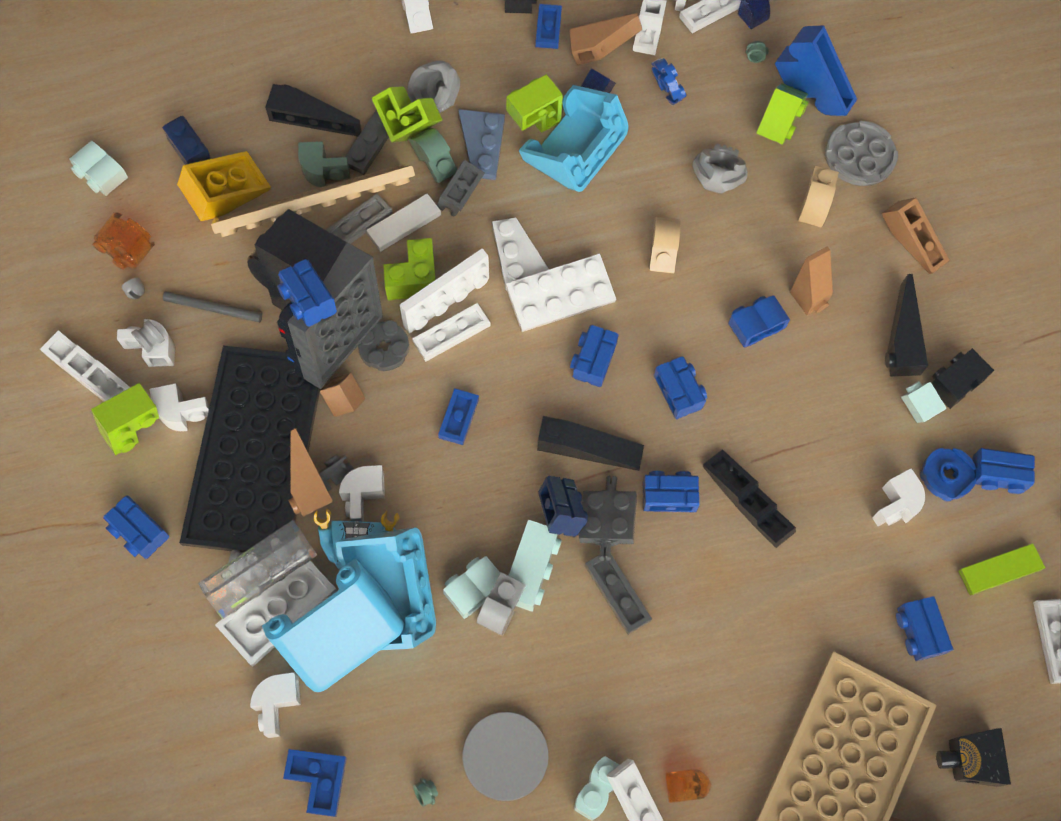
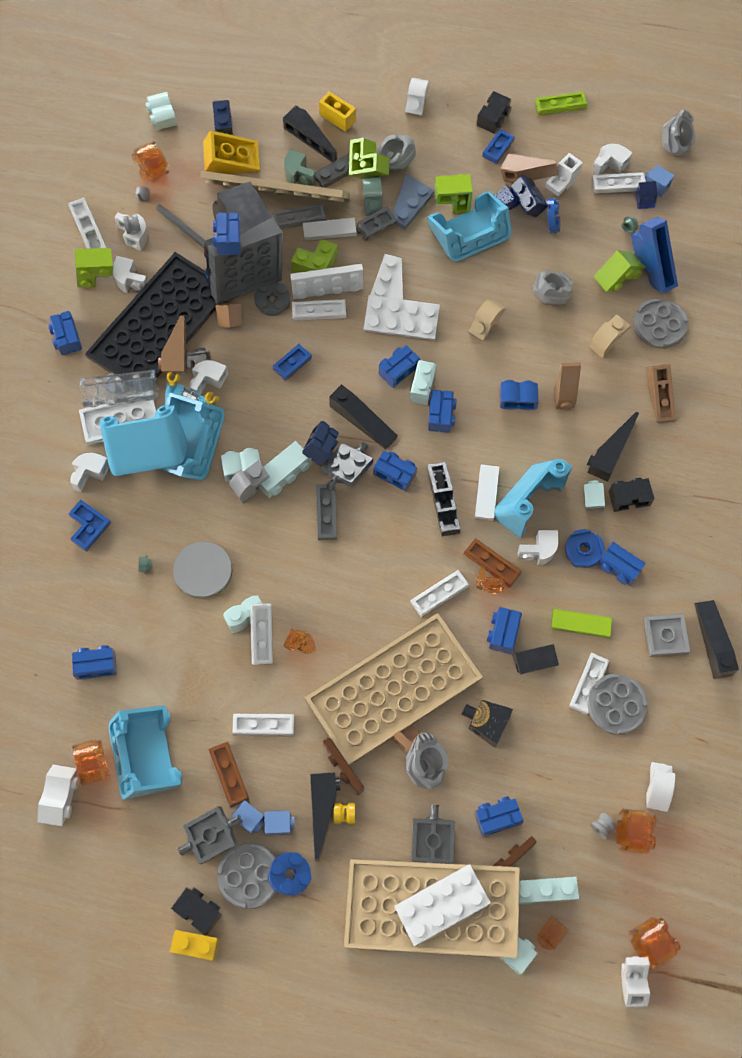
camera: 30 degrees right, 0 degrees up
(329, 69) = (337, 111): none -> yellow brick
(623, 70) = (529, 196): none -> dark blue brick
(637, 362) = (422, 382): none -> light aqua brick
(793, 462) = (486, 492): none -> white tile
(816, 623) = (439, 593): none -> white tile
(841, 458) = (515, 508): none -> medium azure windscreen
(854, 549) = (493, 562): none -> dark orange tile
(874, 578) = (489, 584): none -> clear orange plate
(981, 645) = (535, 659): none -> black hinge

